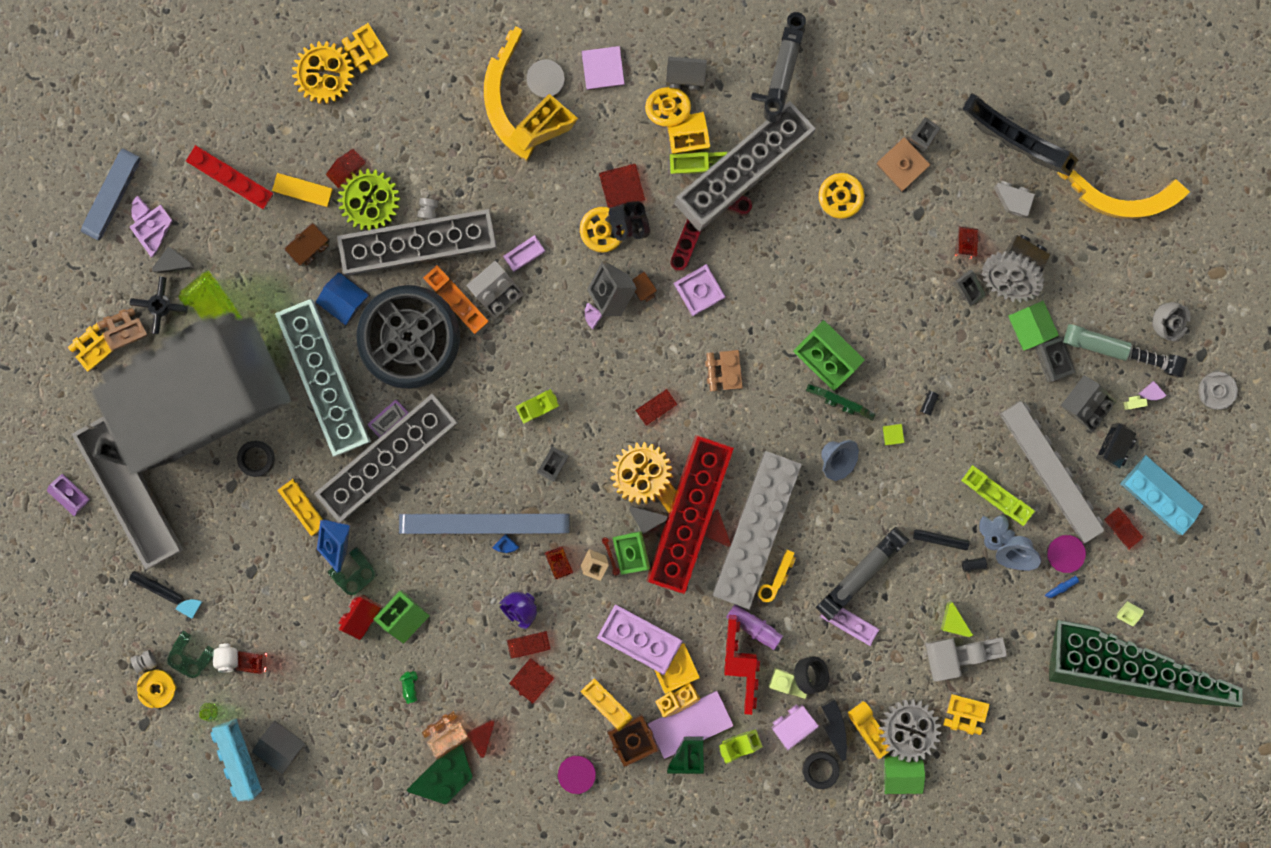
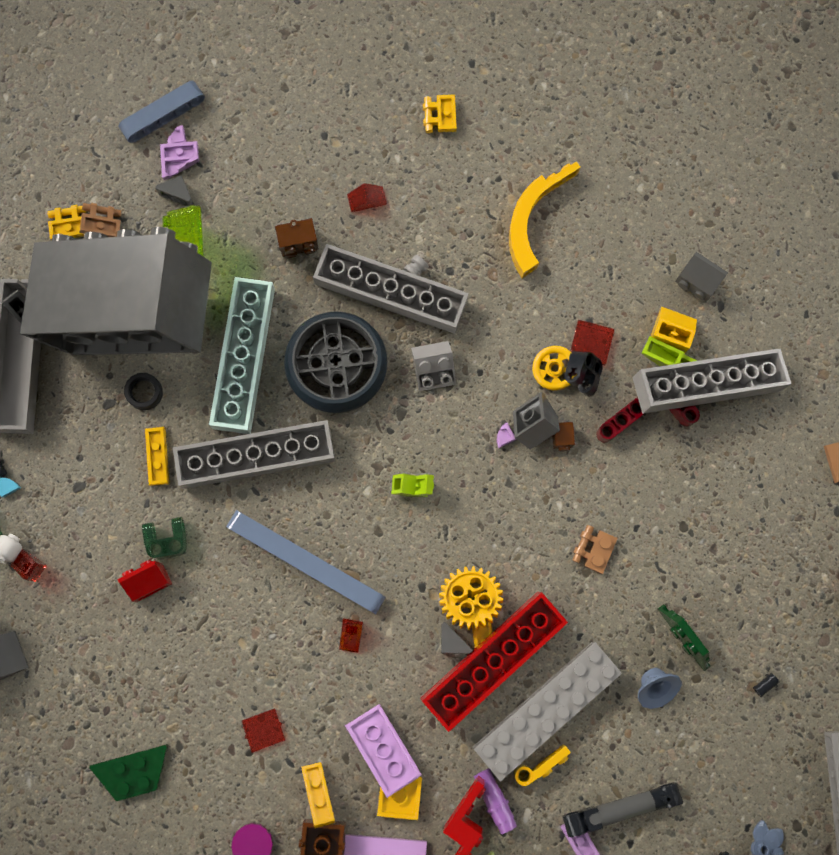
camera: 25 degrees right, 10 degrees down
(159, 313) = (140, 214): black bar -> none
(229, 177) = (267, 150): red bracket -> none
(302, 190) = (320, 196): yellow tile -> none
(320, 89) = (405, 101): yellow gear -> none
(333, 542) = (164, 501): blue slope -> none
(341, 298) = (299, 300): blue slope -> none
(353, 191) = (361, 219): lime gear -> none
(388, 418) = (276, 420): slope -> none
(401, 617) = (182, 602): bright green slope -> none
(408, 689) = (148, 673): green arm -> none
(448, 739) = (155, 740): clear orange plate -> none
(456, 299) = (396, 358): orange slope -> none
(481, 736) = (186, 755): clear red slope -> none
(505, 545) = (312, 592): blue tile -> none
(520, 608) = (291, 656): dark purple cylinder -> none
(524, 253) = (475, 351): lavender tile -> none
(528, 644) = (280, 695): clear red slope -> none
(543, 123) = (555, 250): yellow wedge -> none
(545, 78) = (576, 219): light grey tile -> none
(552, 464) = (396, 544): dark grey slope -> none
(594, 565) = (381, 656): tan brick -> none
(603, 68) = (629, 237): lavender tile -> none
(616, 571) = (397, 674): clear red hinge -> none
(631, 552) = (421, 665): bright green slope -> none
(656, 407) = (516, 547): clear red plate -> none
(673, 120) = (669, 297): yellow plate -> none
(678, 701) = (385, 830): yellow slope -> none
(699, 290) = (610, 467): lavender tile -> none
(716, 529) = (510, 689): clear red slope -> none
(783, 69) = (788, 320): piece -> none
(828, 355) = (696, 589): bright green slope -> none
(839, 179) = (766, 464): yellow plate -> none
(893, 434) = (717, 694): lime tile -> none
(941, 539) = (712, 819): black axle -> none
(997, 496) = (786, 810): lime slope -> none

